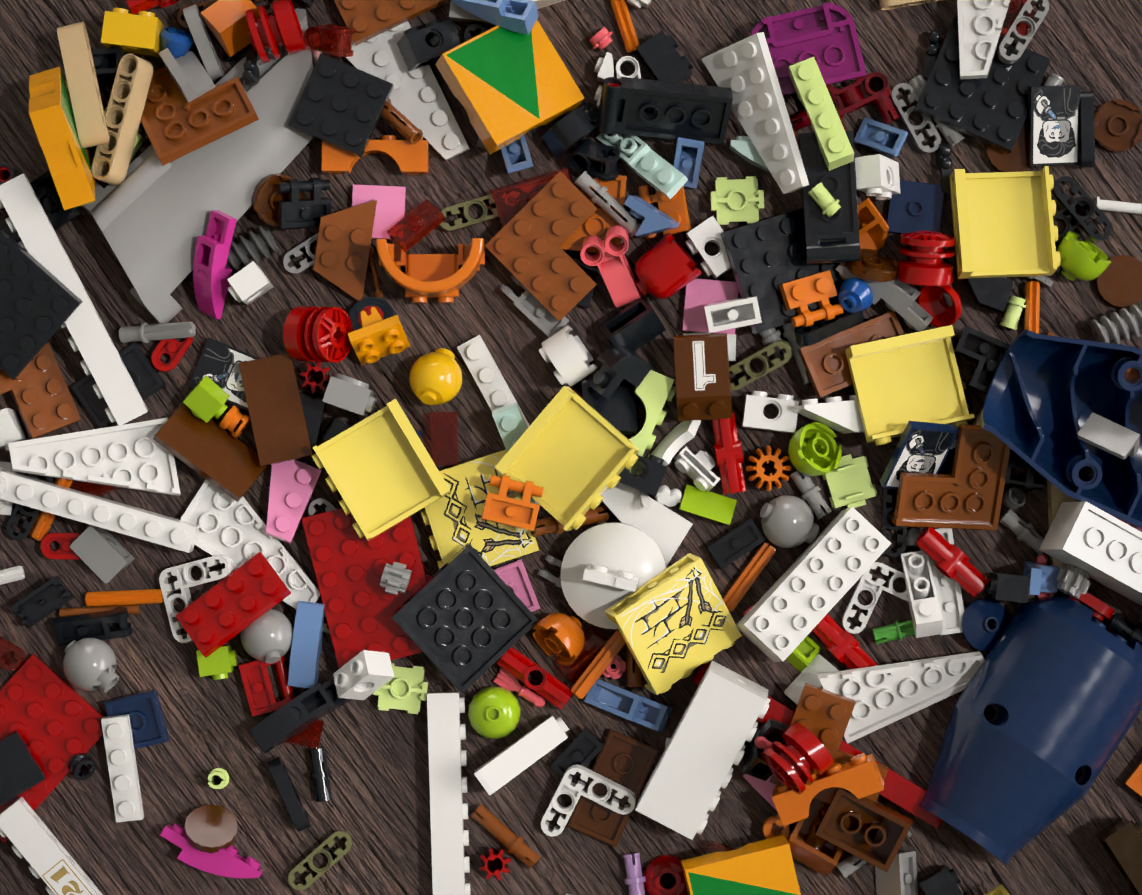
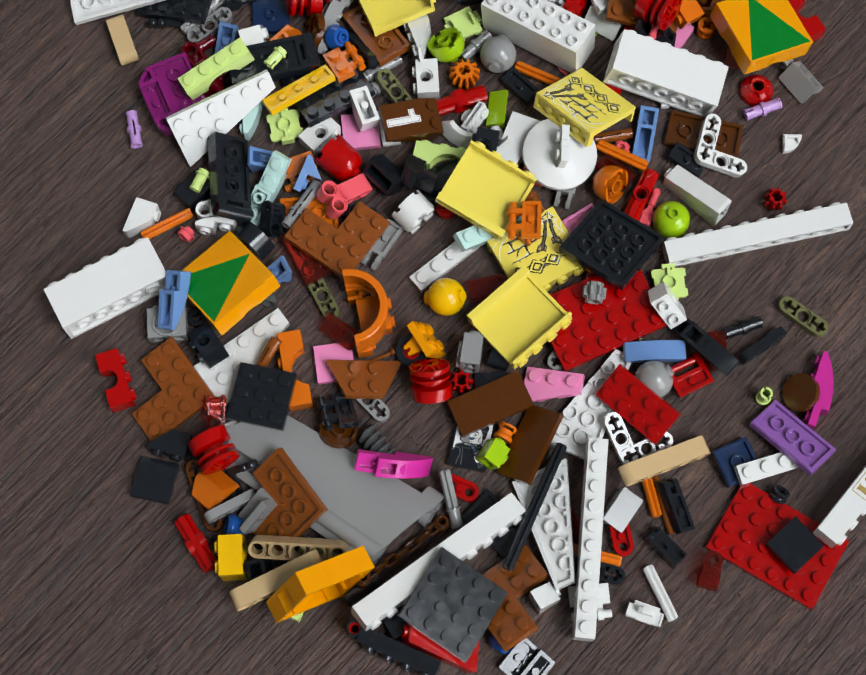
camera: 95 degrees left, 15 degrees down
(90, 665) = (705, 499): light grey brick -> none
(103, 262) = (437, 527): none -> reddish brown piece
(123, 439) = (534, 507): none -> black axle
(152, 801) = (792, 437): none -> medium lavender tile
(153, 623) = (664, 460): none -> tan beam
(218, 663) = (686, 410): lime brick -> none
(249, 284) = (403, 437): white brick -> none
(505, 836) = (758, 190): dark orange pin -> none
(667, 67) = (199, 180): none -> yellowish green pin
(776, 226) = (298, 89): none -> yellow plate

